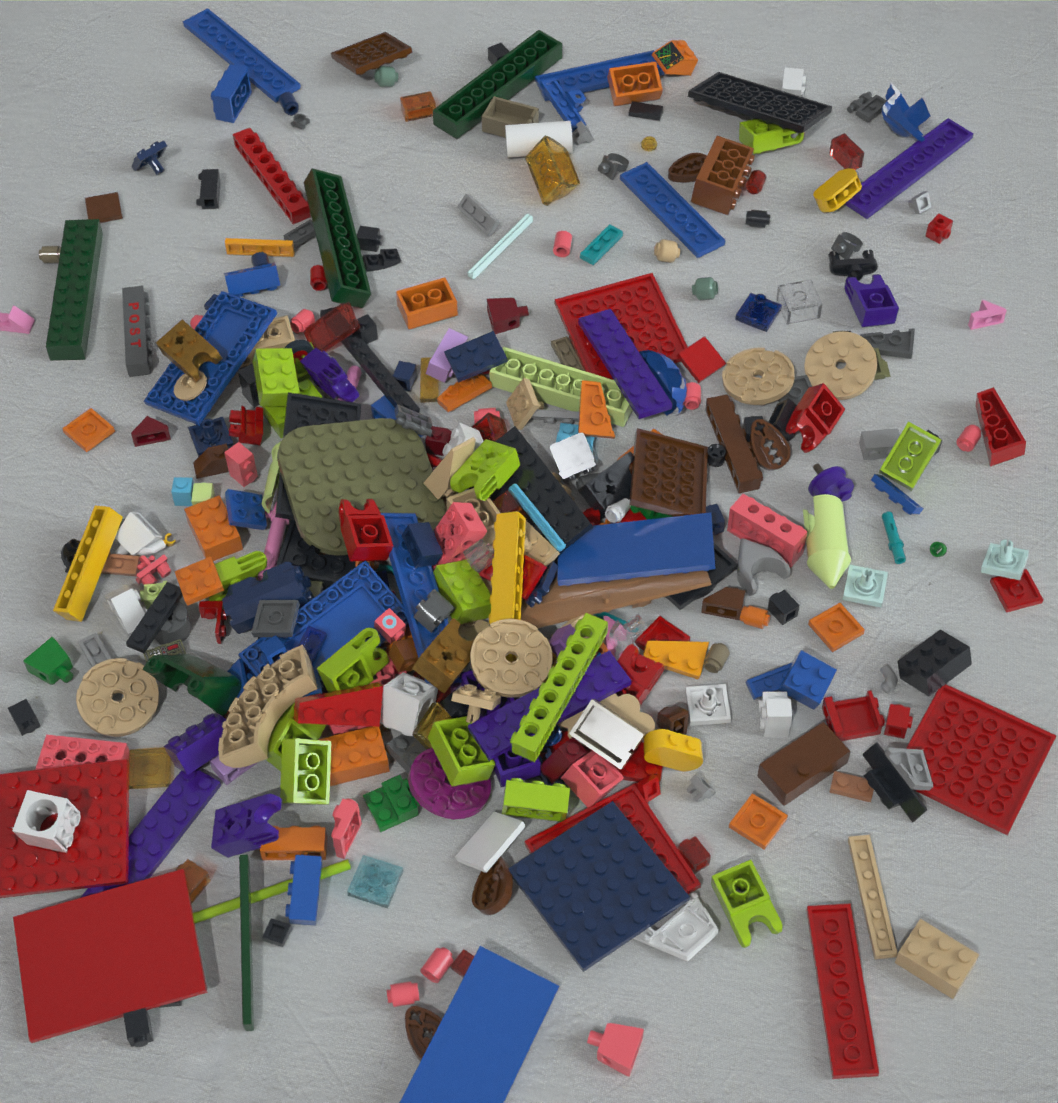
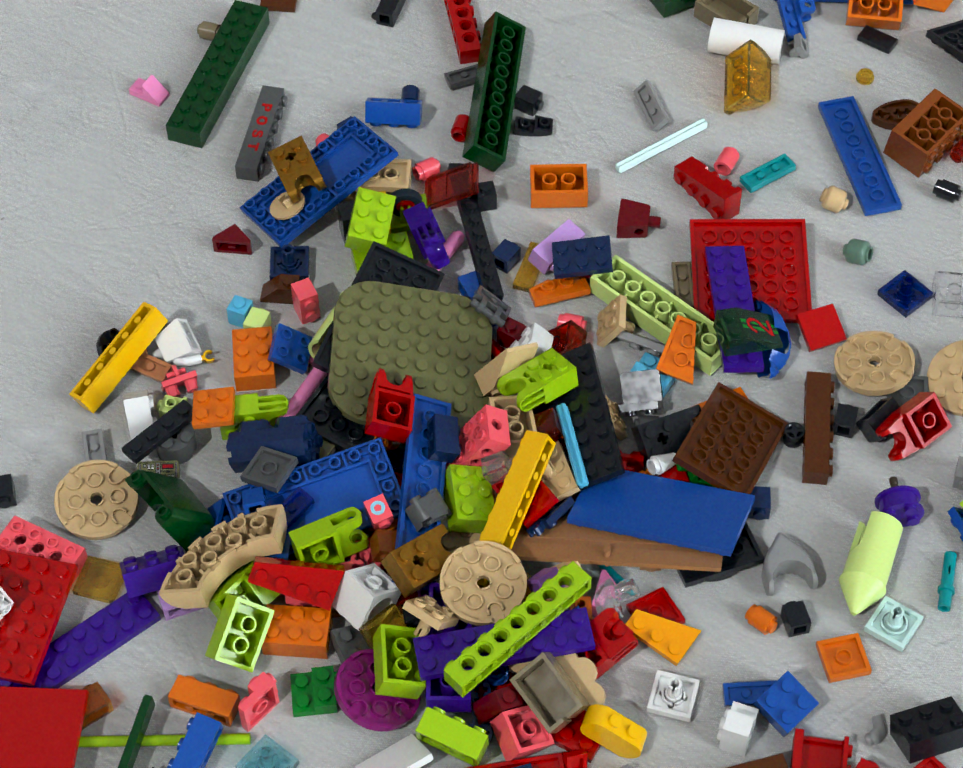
camera: 20 degrees right, 0 degrees up
(50, 663) = (47, 445): green torso -> none
(88, 430) = (175, 221): orange plate -> none
(213, 610) = (218, 440): red bracket -> none
(245, 825) = (160, 667): dark purple brick -> none
(249, 425) = (331, 263): red hips -> none
(251, 246) = (410, 77): light orange plate -> none
(557, 270) = (708, 188): none -> red wedge
(609, 168) = (810, 93): dark grey piece -> none
(645, 378) = (745, 331): none -> clear green slope
(673, 719) = (628, 701): reddish brown slope -> none
(693, 396) = (795, 363): coral brick -> none
(716, 657) = (702, 649): dark tan brick -> none
(724, 603) = (735, 594): reddish brown slope -> none
(762, 525) = (811, 531): coral brick -> none
(778, 441) = (864, 442): reddish brown piece -> none

